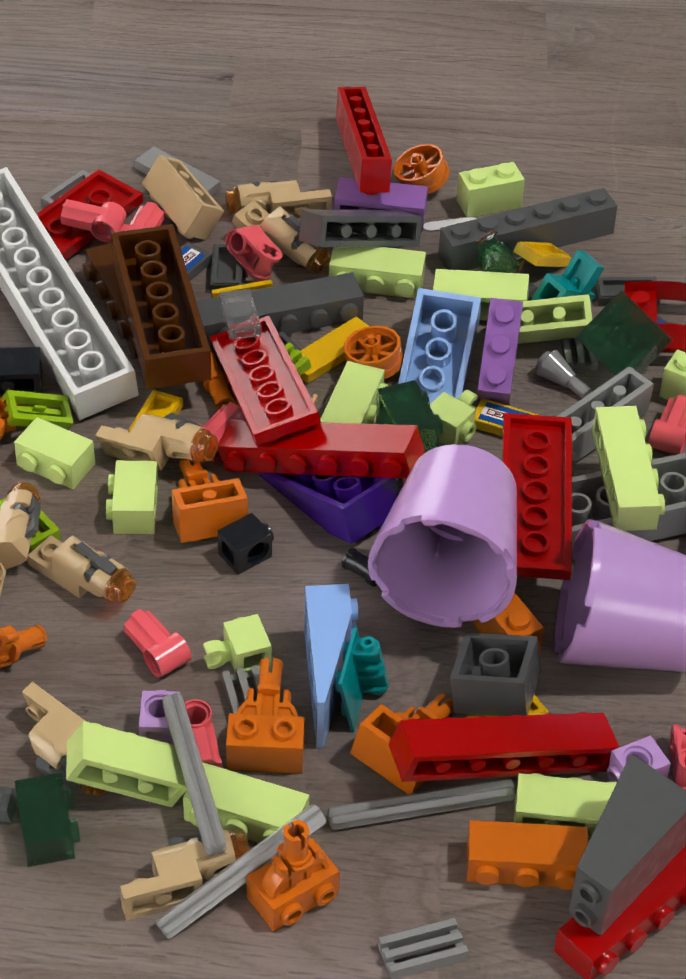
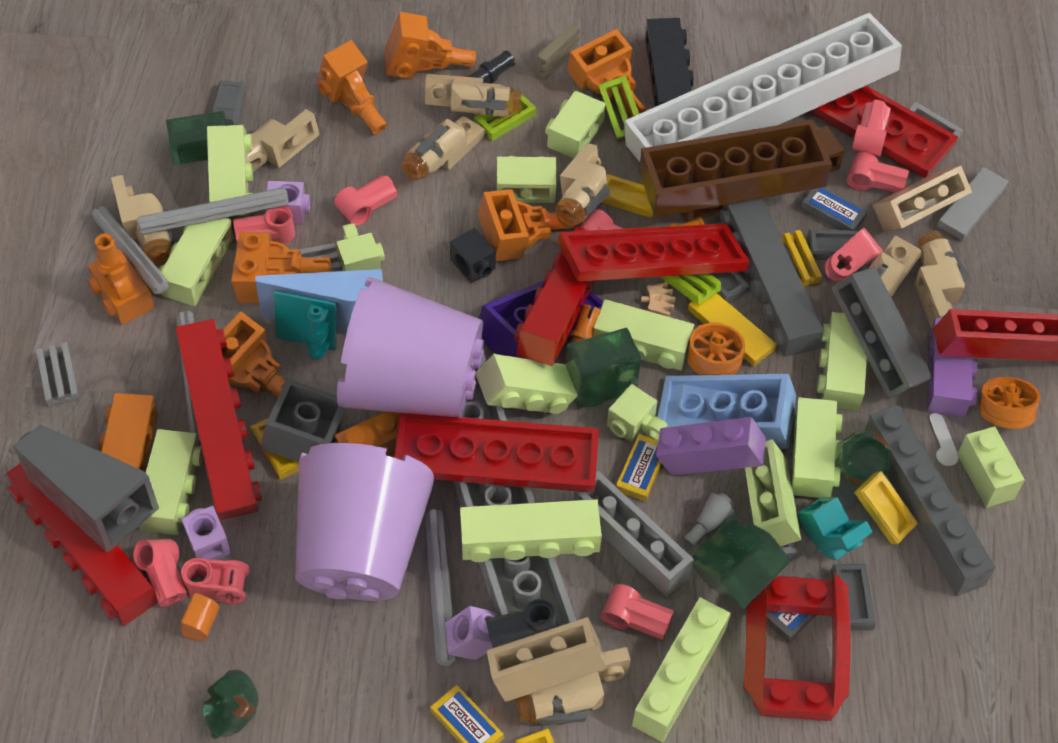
camera: 90 degrees right, 10 degrees up
(240, 314) = (742, 235): clear tile -> none

